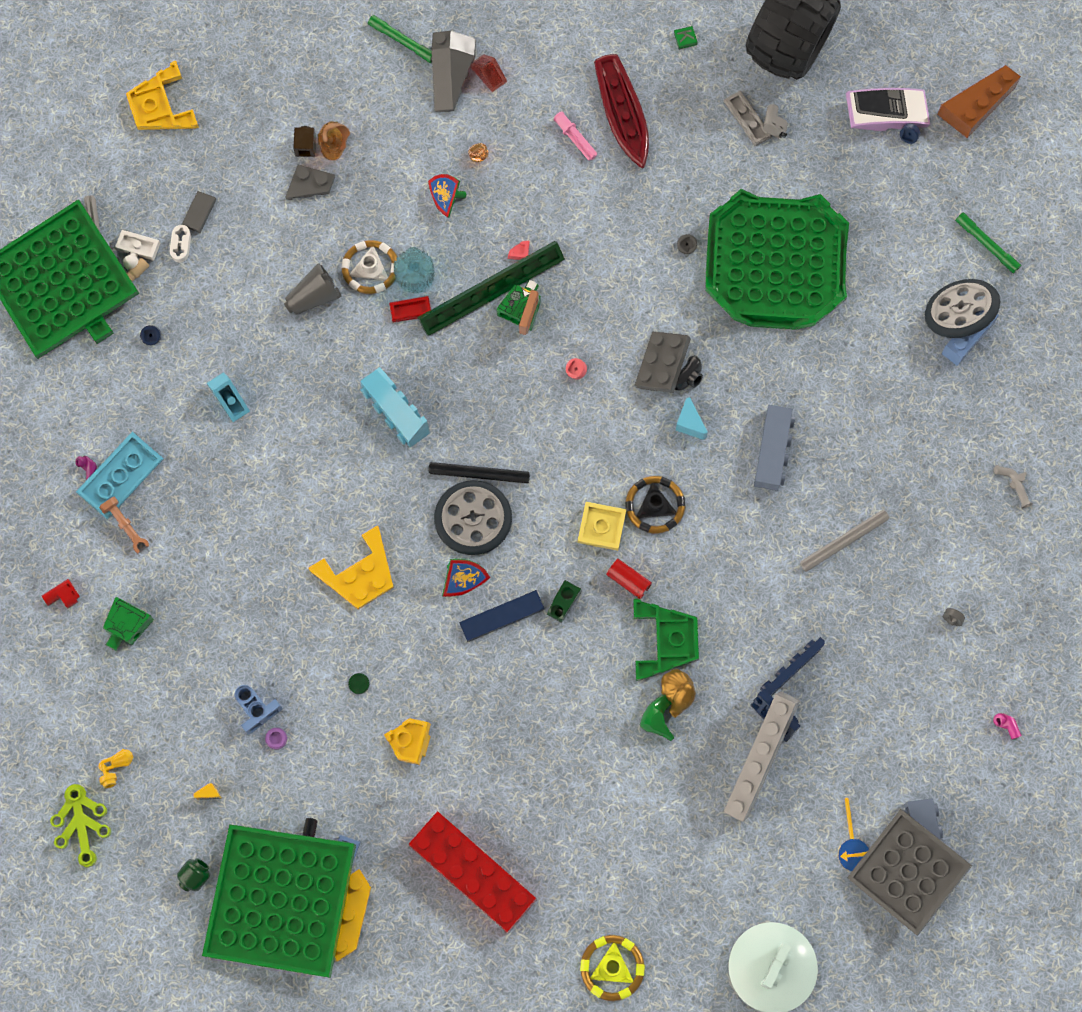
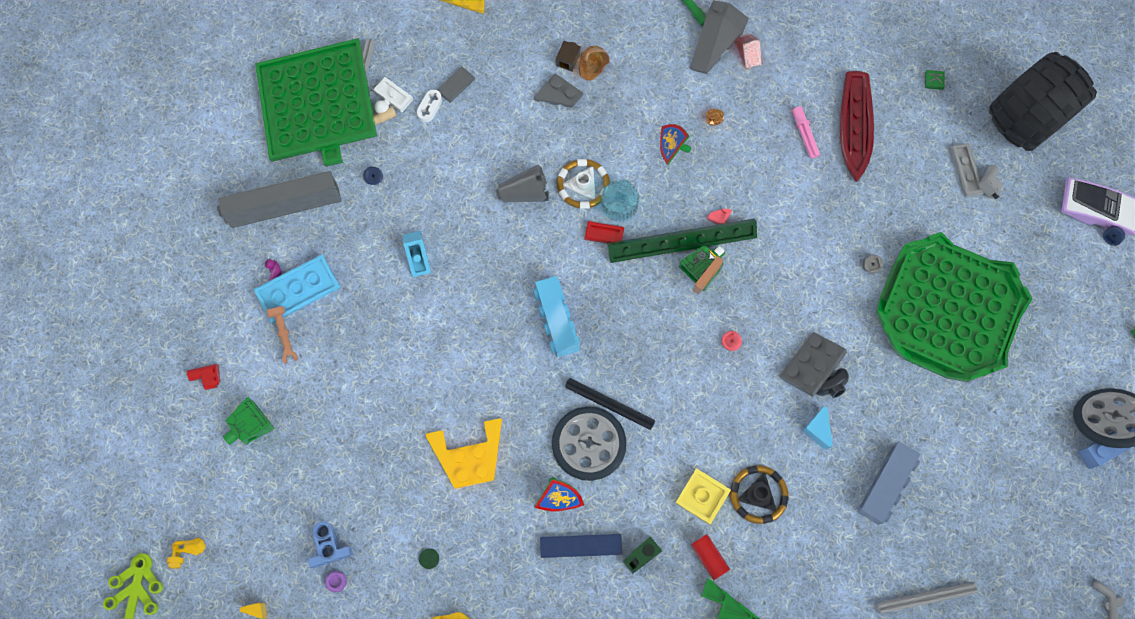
camera: 20 degrees right, 0 degrees up
(65, 393) = (279, 199): none -> dark grey brick

